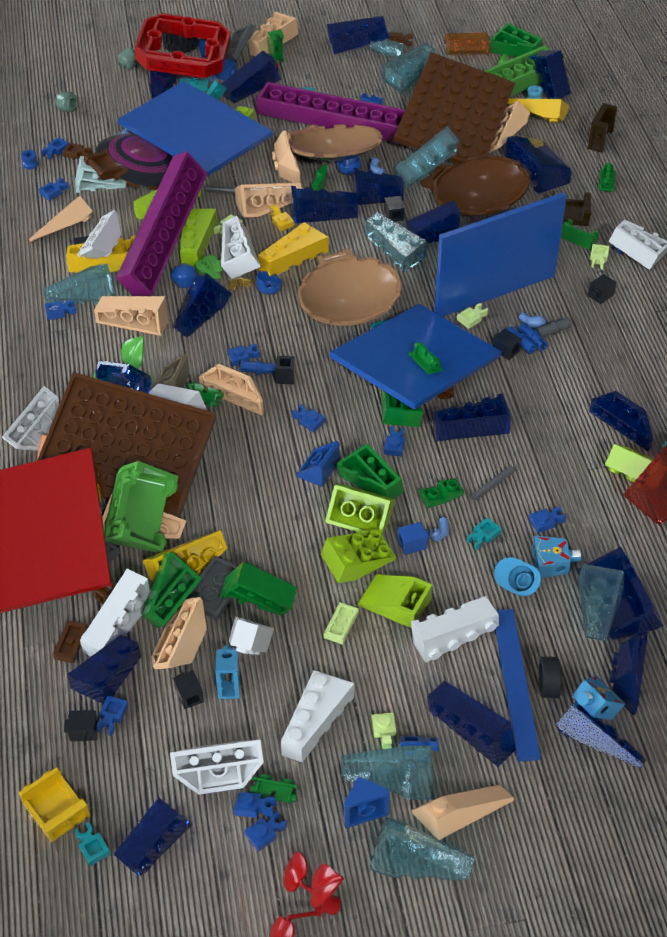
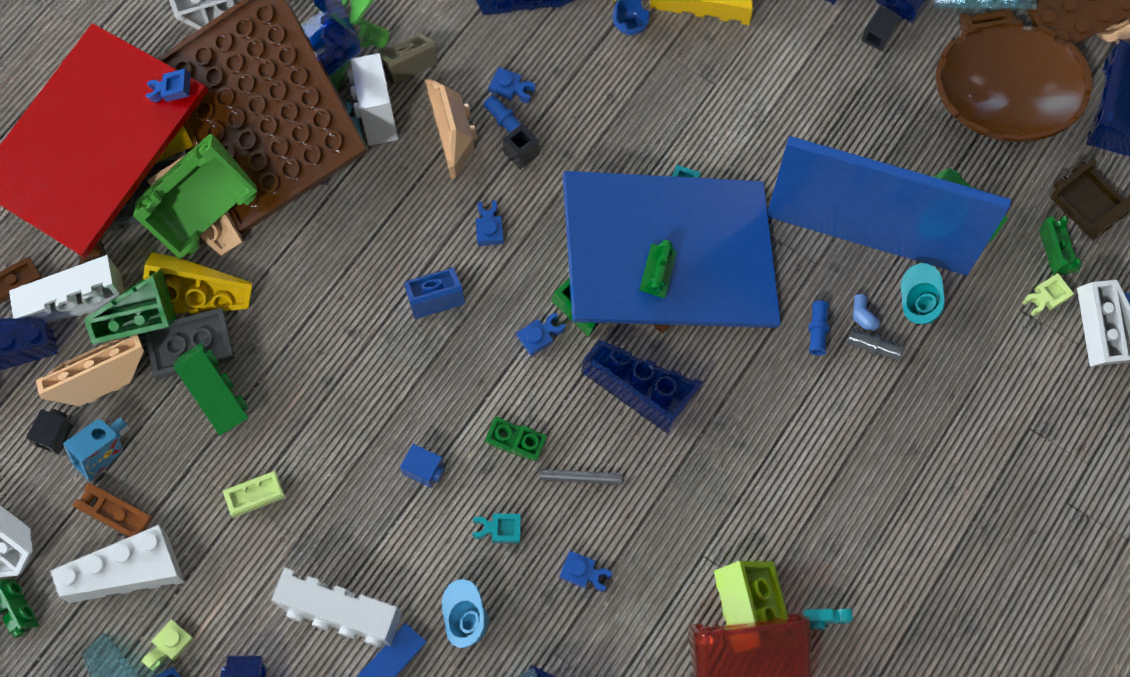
camera: 45 degrees right, 20 degrees up
(73, 458) = (172, 87): none -> blue plate
(212, 395) = (416, 114): green hinge -> none
(250, 636) = (141, 431): white wedge -> none
(272, 696) = (112, 511): none -> dark orange plate
(348, 289) = (698, 99): medium nougat dish -> none
(356, 554) = (351, 433): lime slope -> none
(359, 509) = (411, 383): lime slope -> none
(370, 472) = (465, 352): green wedge -> none
(396, 241) = (830, 81): clear light blue wedge -> none
(397, 598) = (328, 519): lime slope -> none
(435, 222) = (895, 90): clear blue wedge -> none
(442, 531) = (461, 485): medium blue arm -> none
(471, 317) = (799, 248): yellowish green plate -> none
(507, 343) = (795, 319): black brick -> none
(533, 335) = (837, 335): blue pin -> none
(549, 290) = (922, 294): none -> teal piece
(553, 556) = (532, 623): dark azure torso -> none
(602, 289) = (993, 344): black brick -> none
(624, 417) = (809, 535): clear blue wedge -> none

